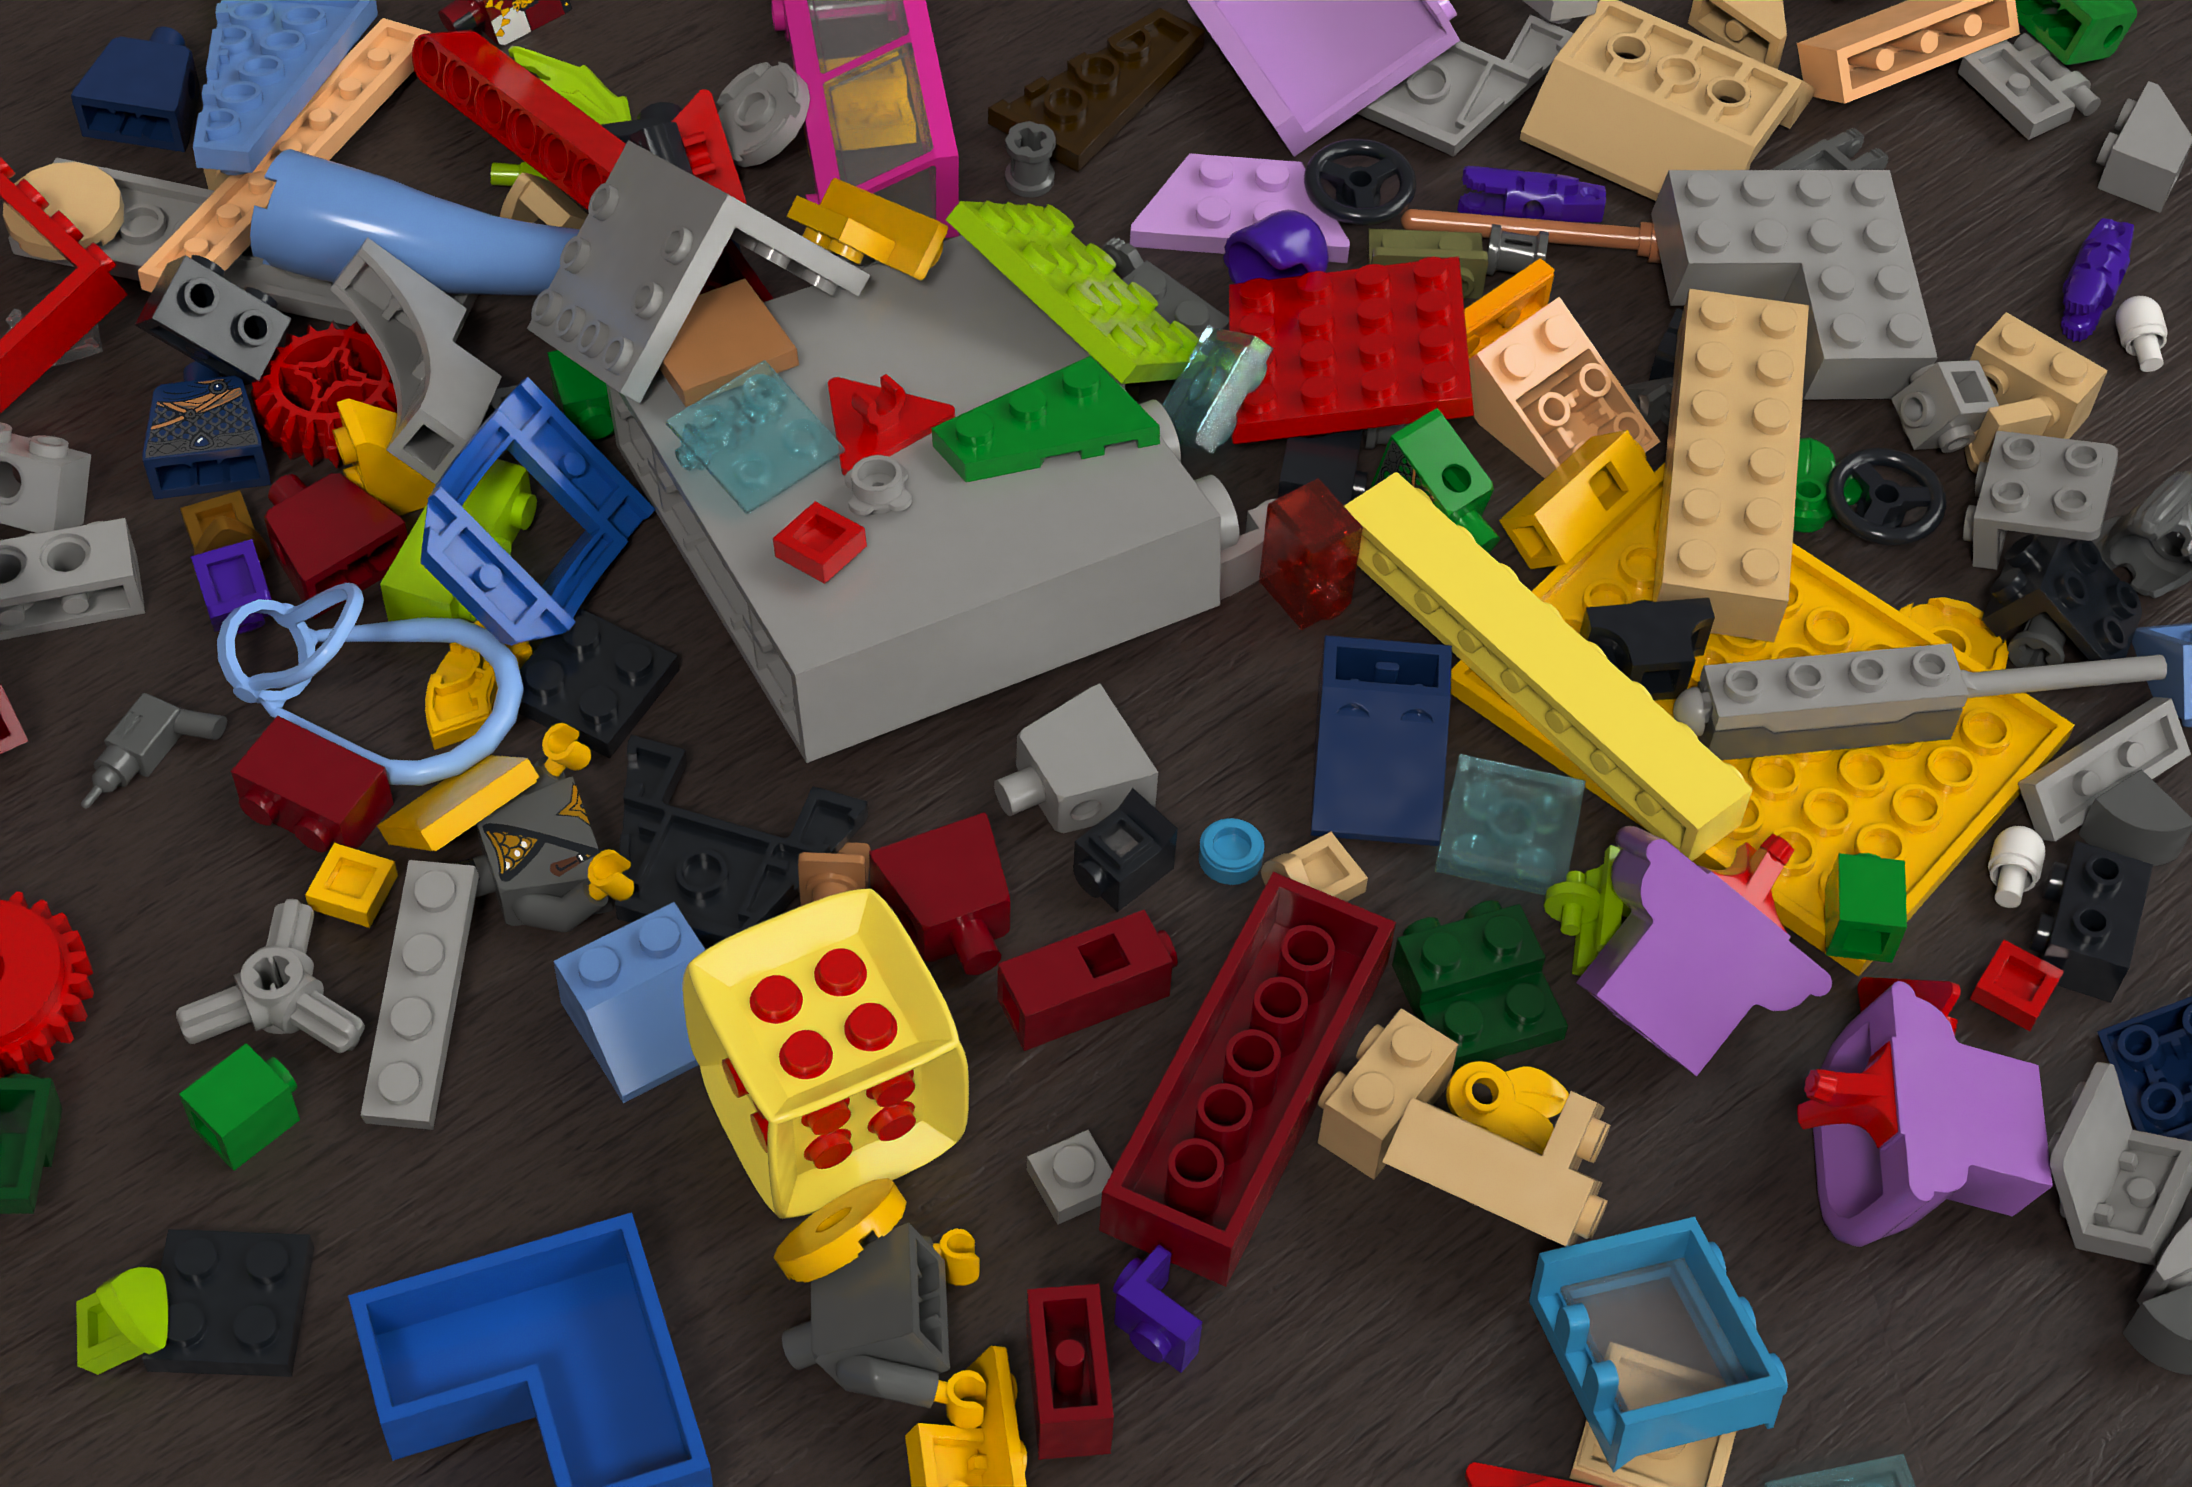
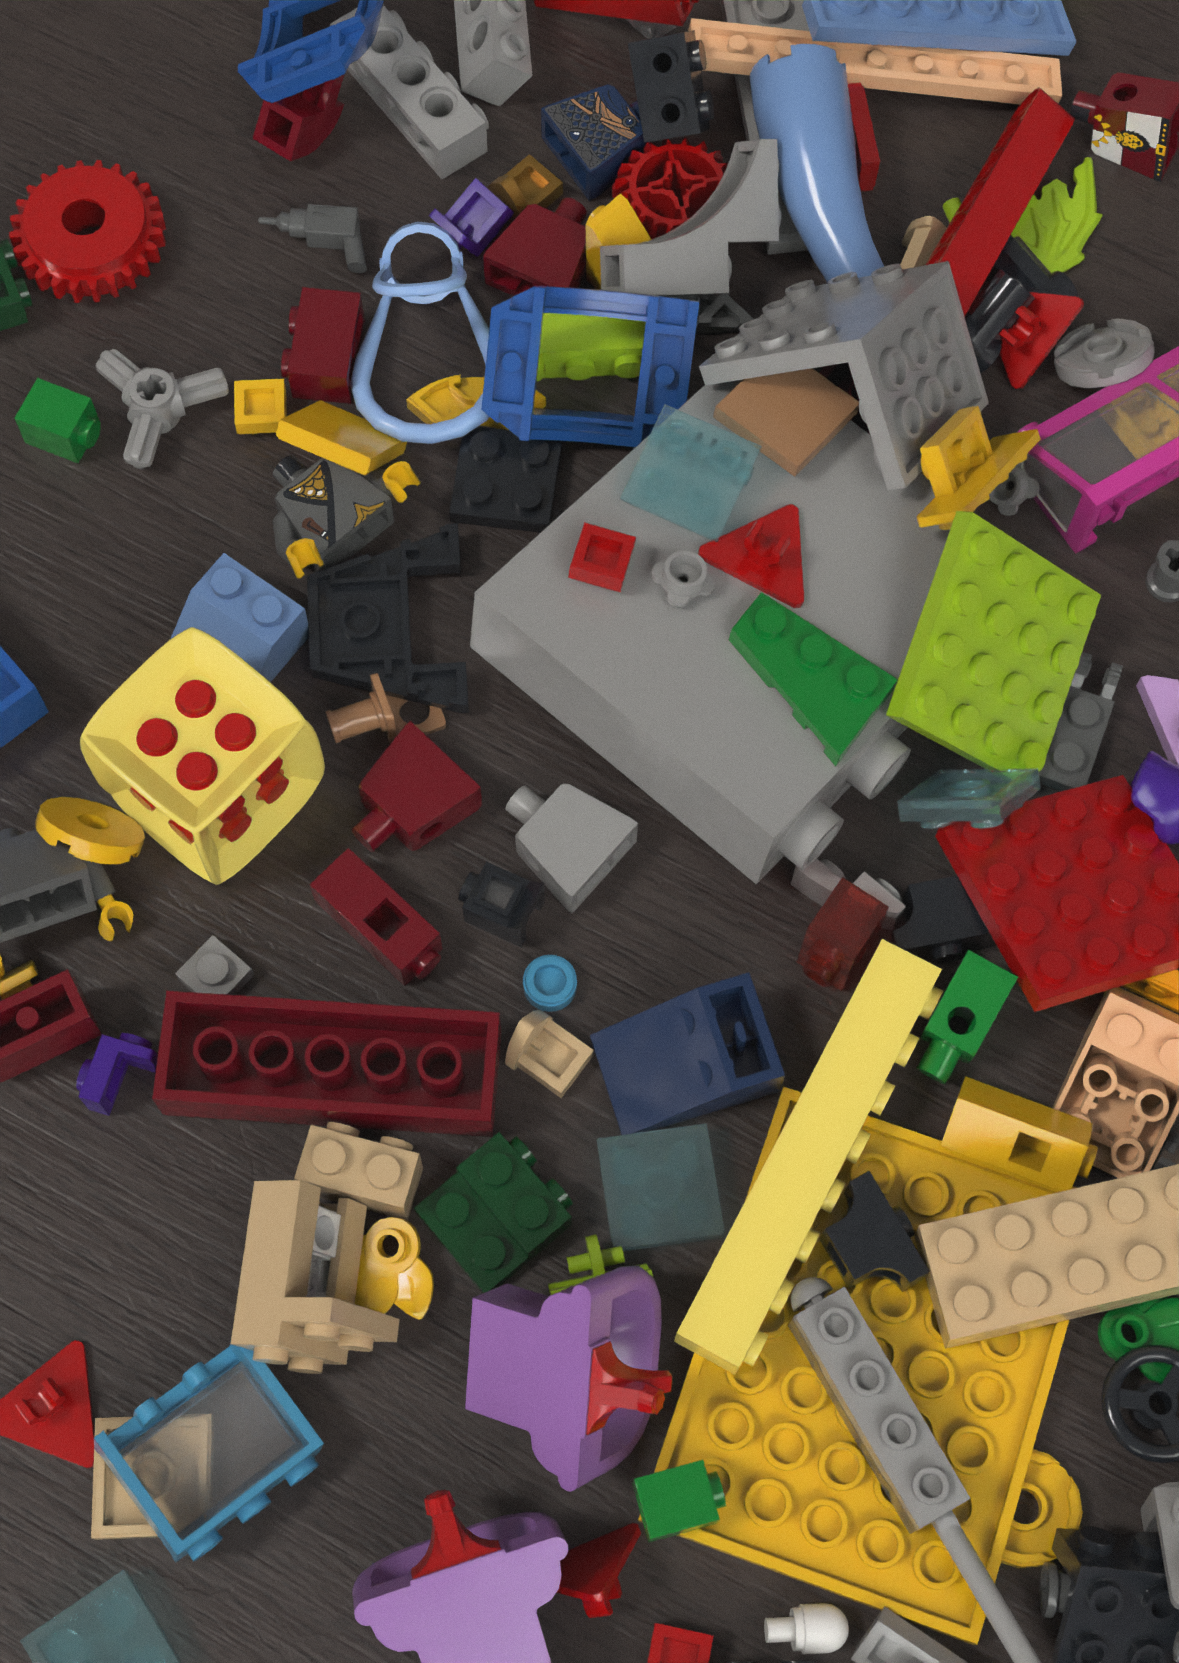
camera: 70 degrees right, 15 degrees up
(420, 995) = (185, 486): light grey plate -> none

